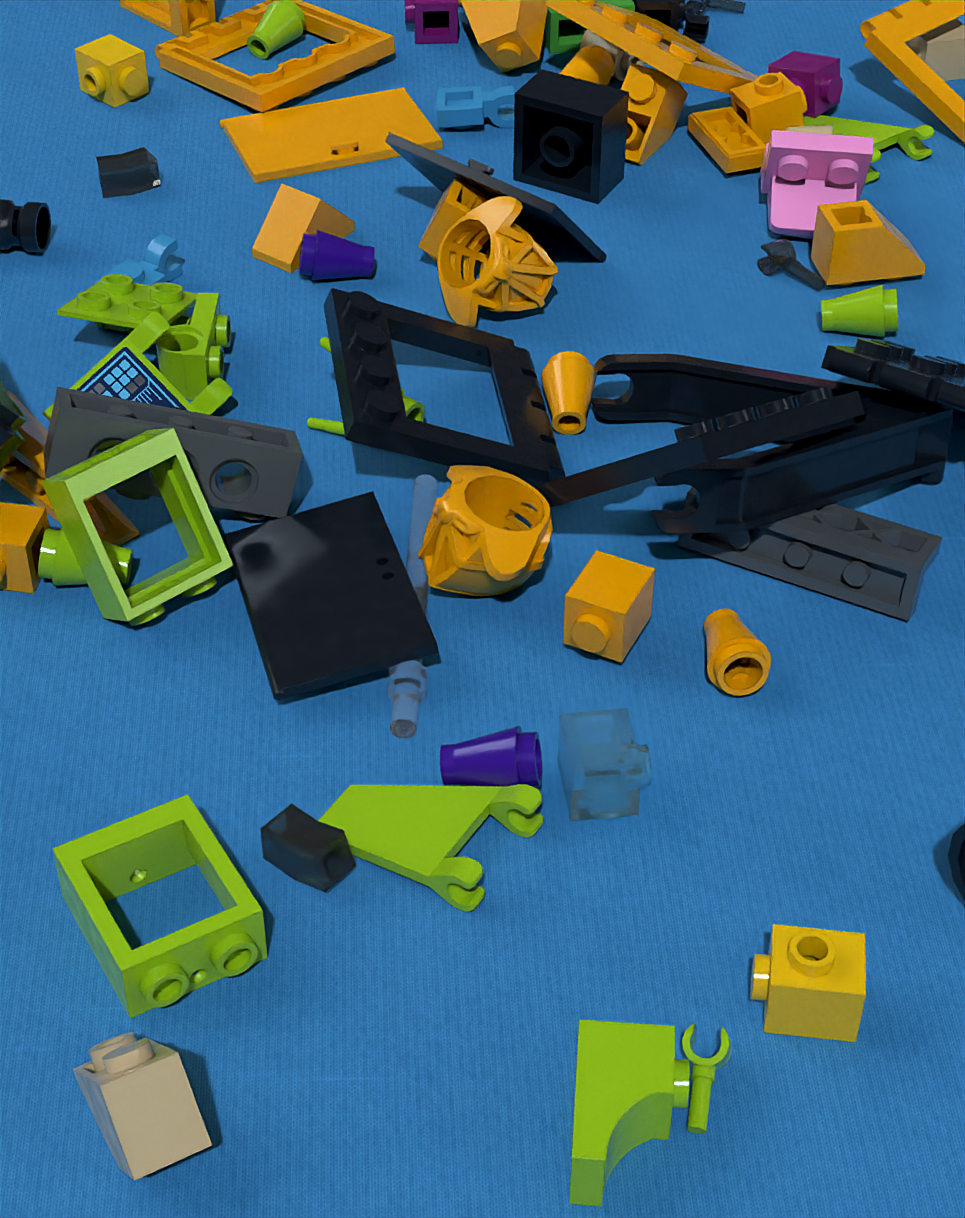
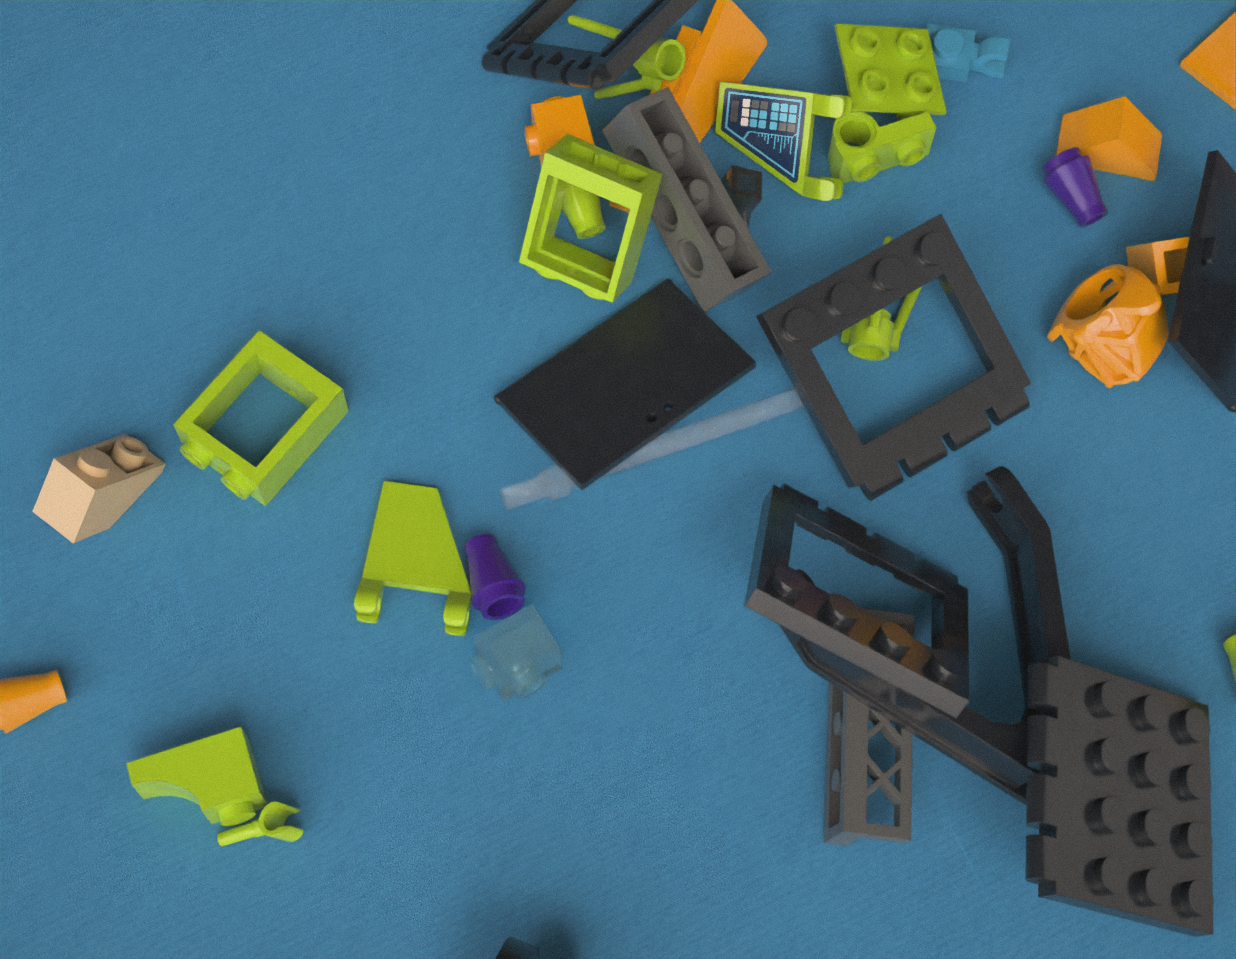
camera: 65 degrees right, 25 degrees up
(306, 848) = (355, 487): clear smoke piece -> none
(470, 535) = (719, 468): light orange piece -> none
(568, 389) = (978, 456): light orange cone -> none
(608, 605) = (689, 594): light orange brick -> none
(734, 654) = (696, 711): light orange cone -> none
(811, 982) = (360, 876): yellow brick -> none

